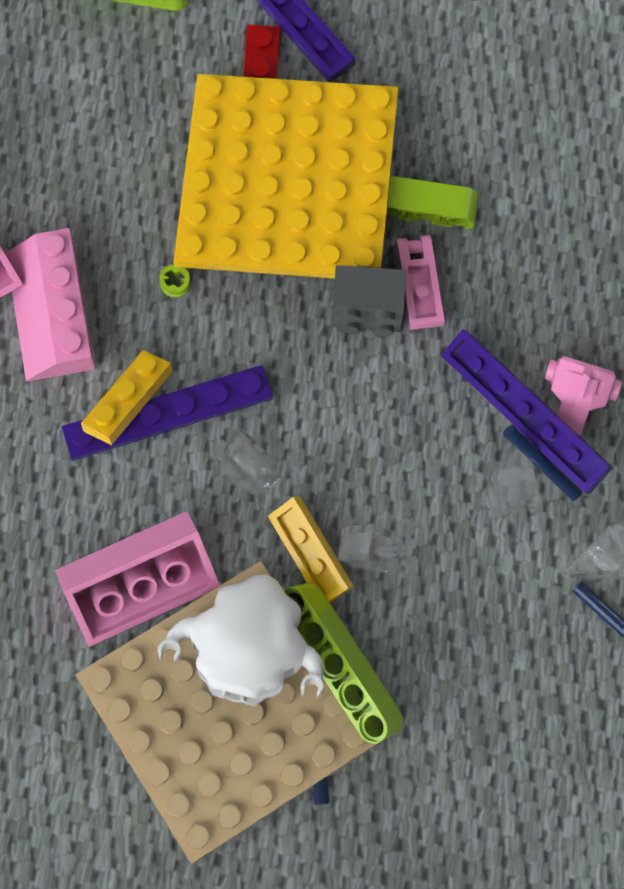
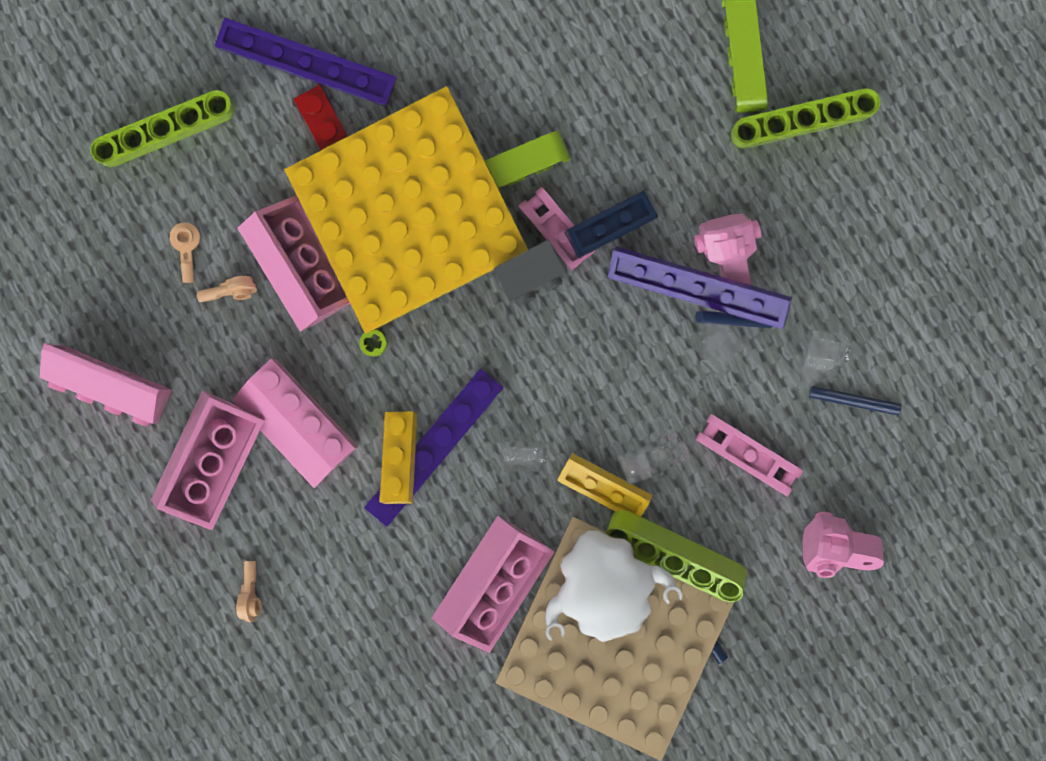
camera: 30 degrees left, 15 degrees up
(63, 85) = (185, 239): none -> light nougat plate
(83, 154) = (239, 287): none -> light nougat plate
(150, 162) = (294, 262): none -> bright pink slope
(475, 307) = (611, 224): none -> dark blue tile
(477, 610) = (749, 455): none -> bright pink plate
(509, 750) = (832, 544): none -> bright pink piece

